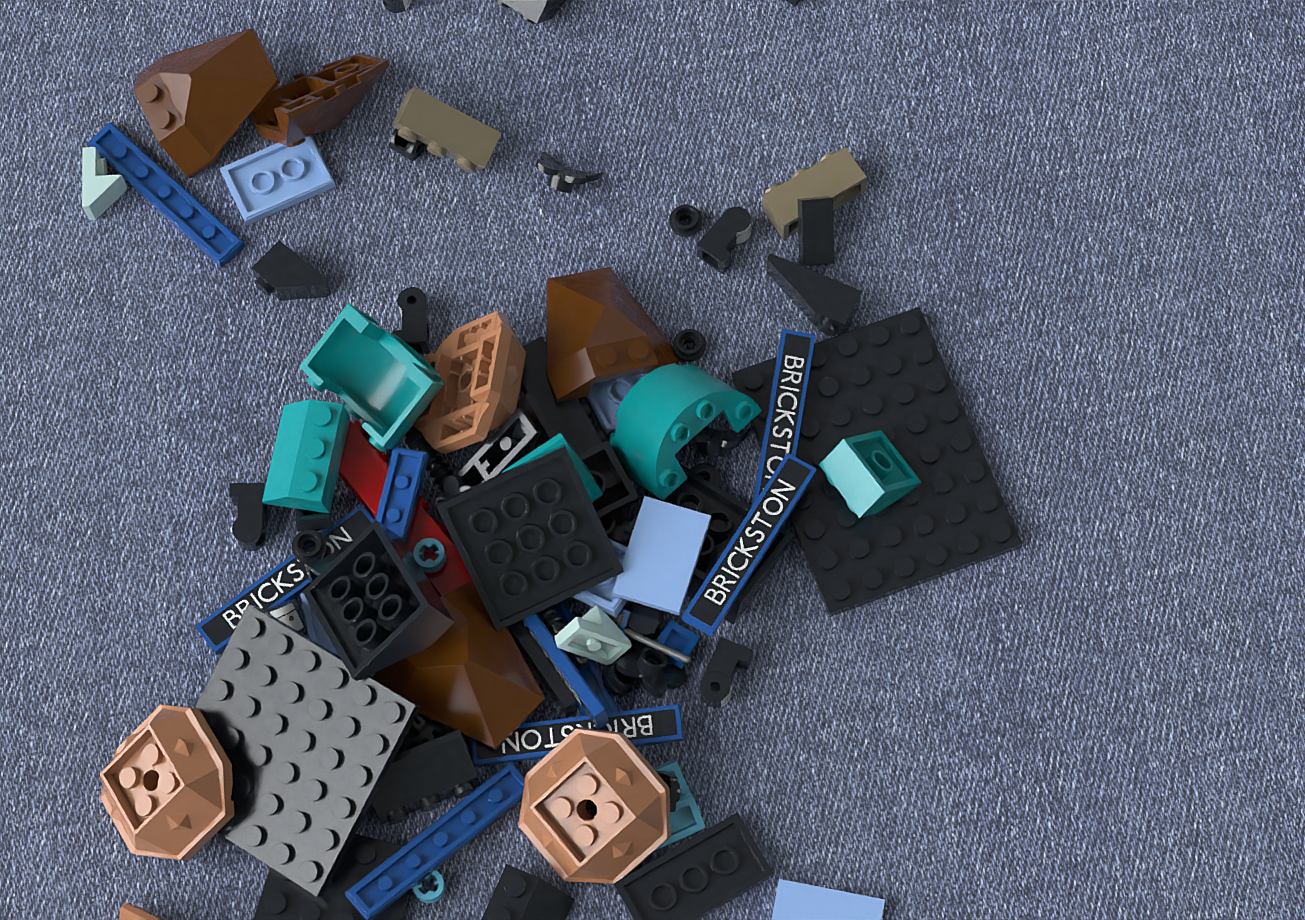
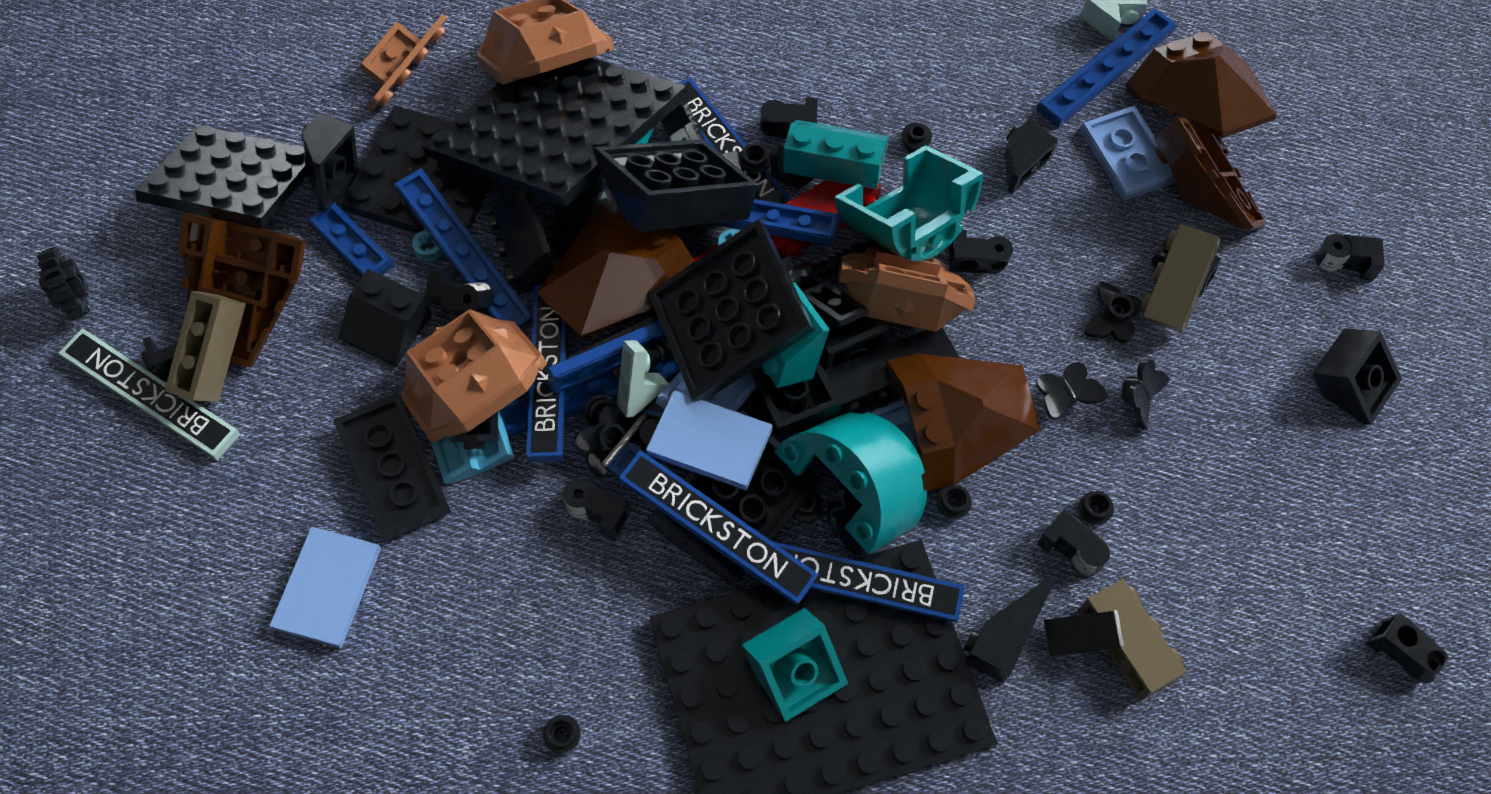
camera: 85 degrees right, 5 degrees down
(268, 394) = (913, 142): none -> black plate
(473, 195) = (1113, 315): none -> black animal
(496, 836) = (457, 295): none -> black leg
(565, 240) = (1069, 388): none -> black animal
(953, 673) = (553, 726): none -> black plate

